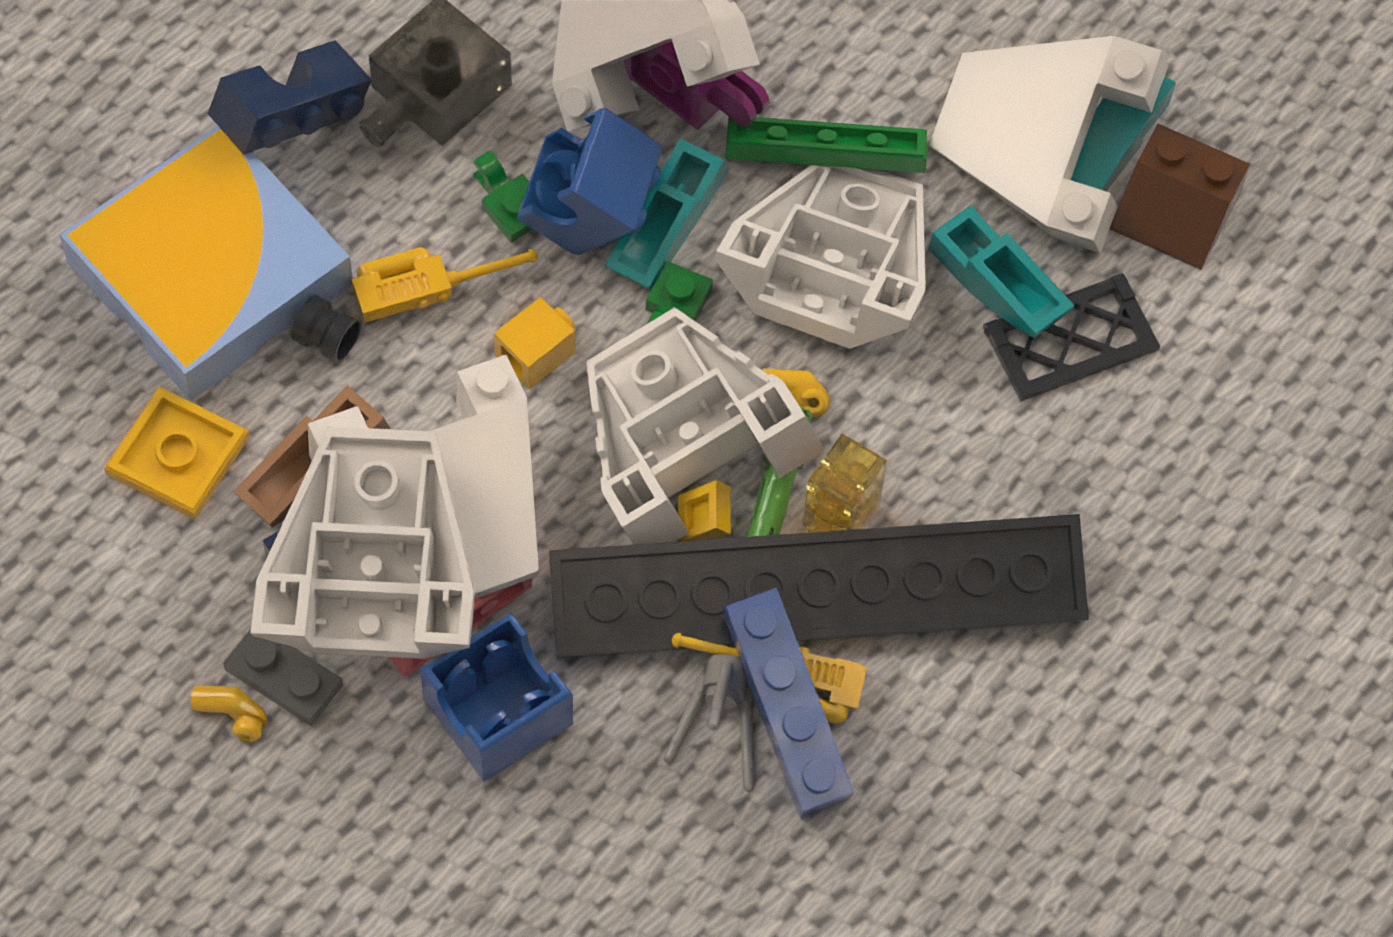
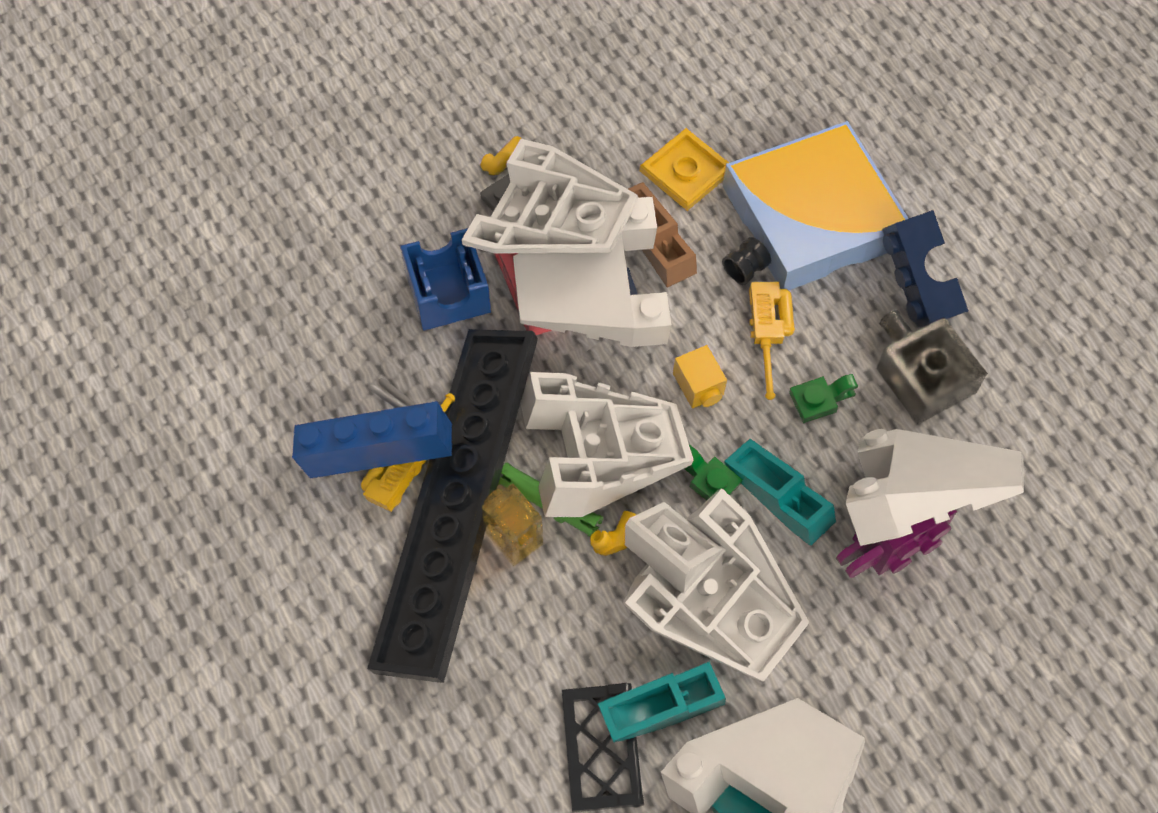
camera: 110 degrees right, 0 degrees up
(591, 186) = (805, 432): blue piece -> none
(706, 511) = (537, 444): yellow plate -> none
(807, 295) = (670, 545): none -> white slope
(828, 144) = (811, 623): green tile -> none

